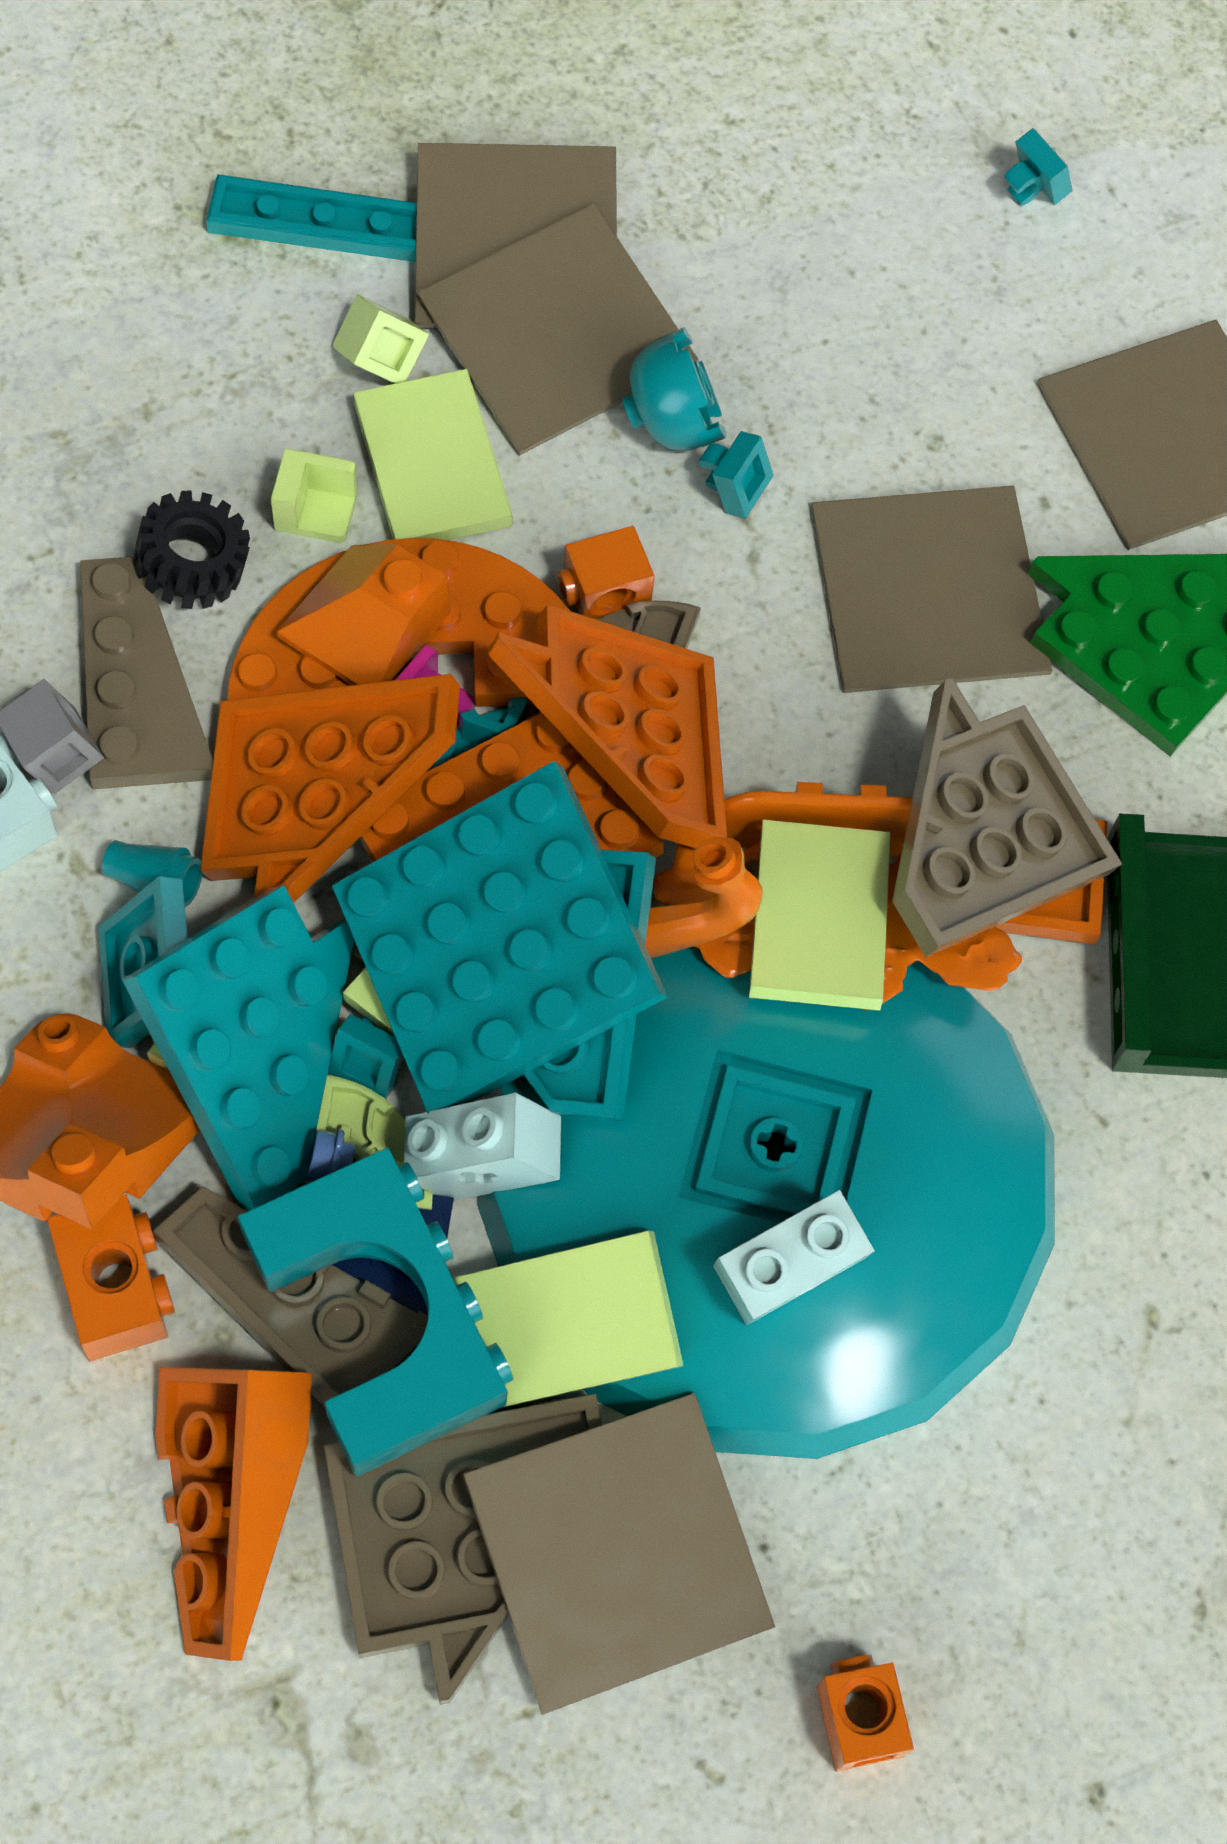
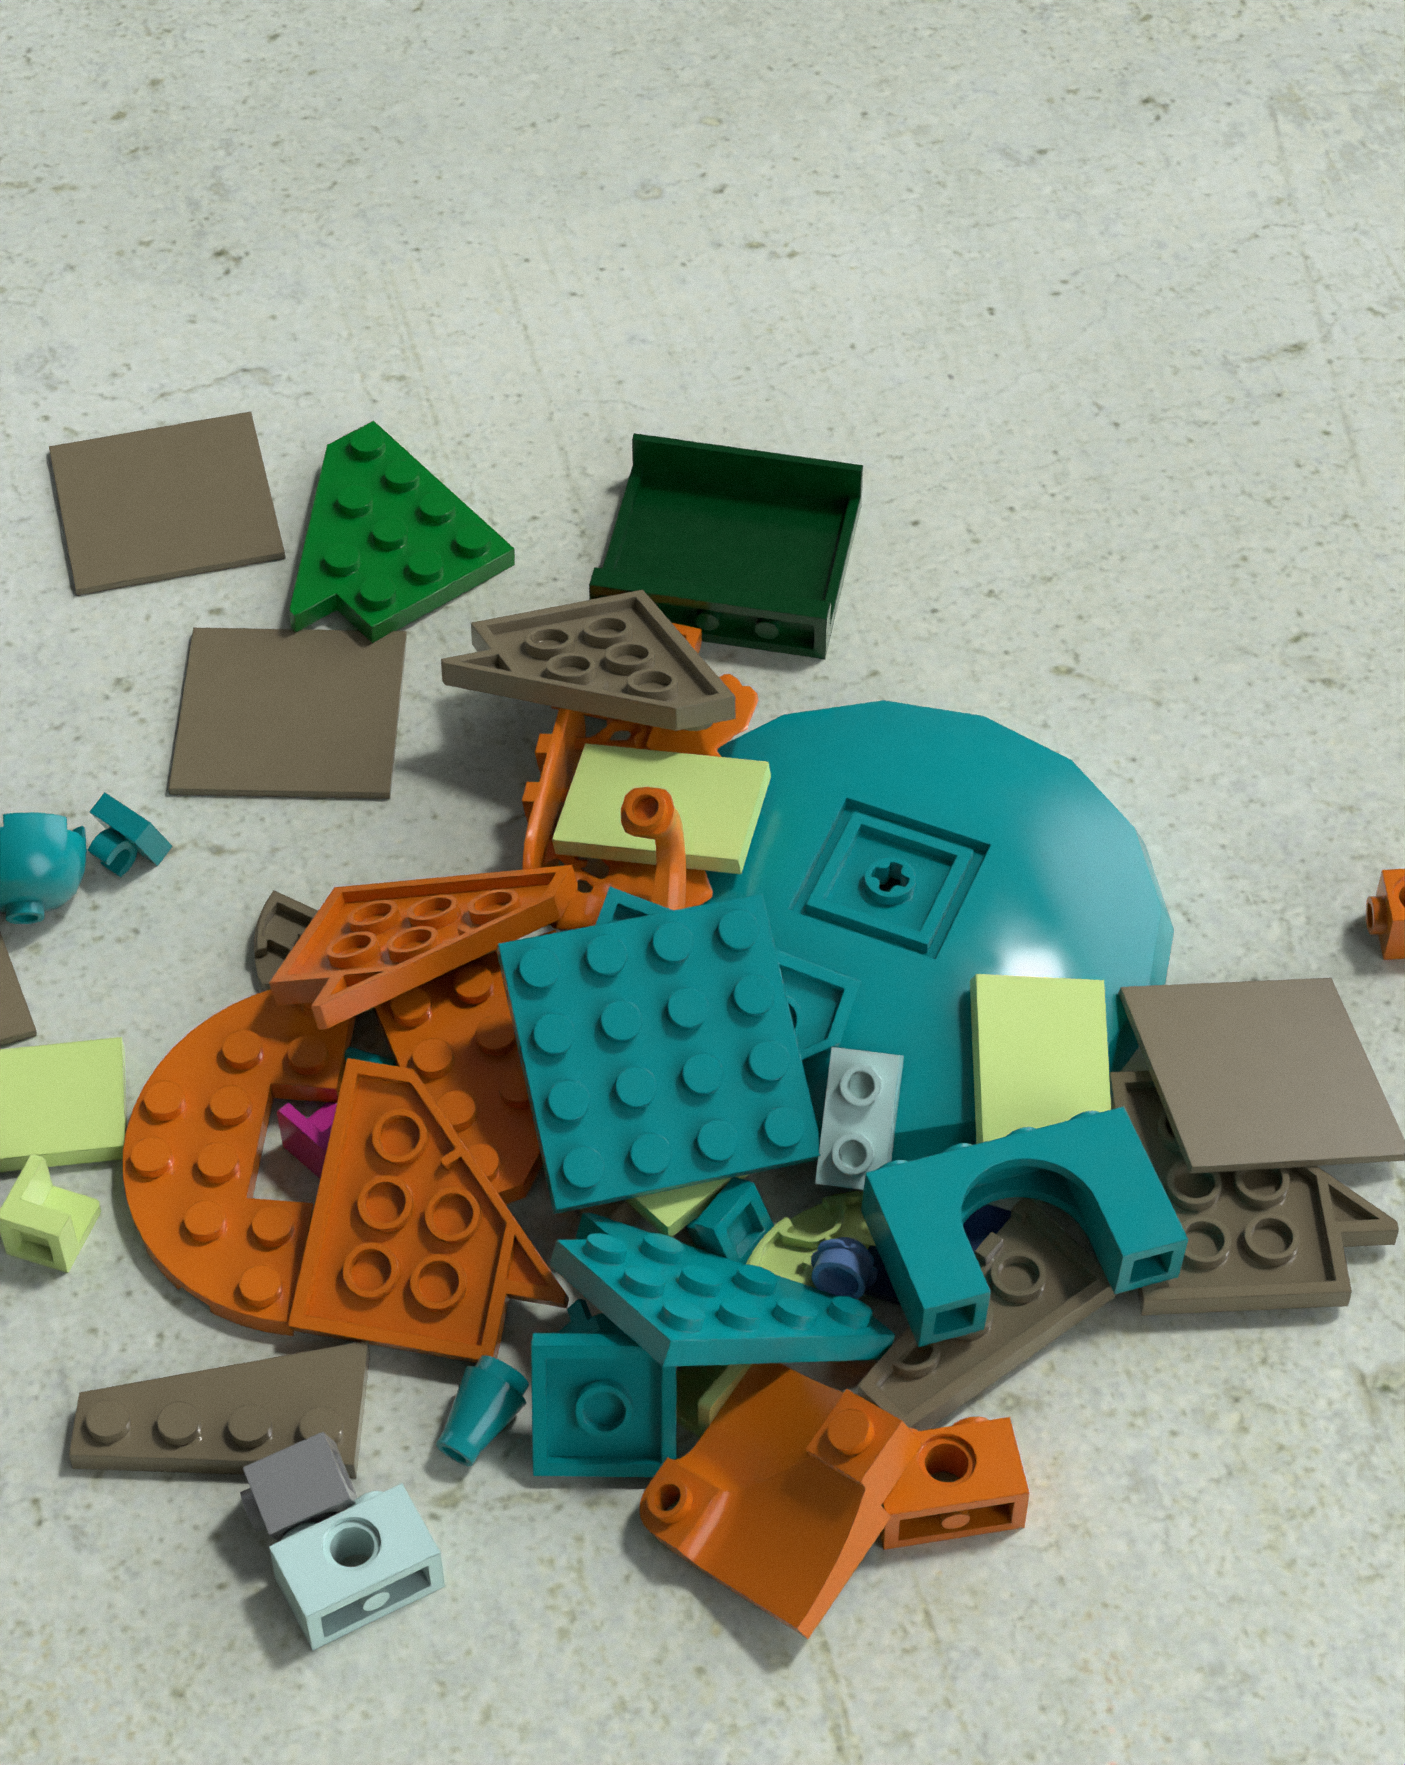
camera: 75 degrees left, 15 degrees down
(197, 522) = (95, 1359): black tyre -> none
(234, 1468) = (1161, 1391): orange wedge -> none
(369, 613) = (227, 1156): orange slope -> none
(606, 573) = (218, 957): orange brick -> none
(793, 1257) = (1019, 862): light aqua brick -> none

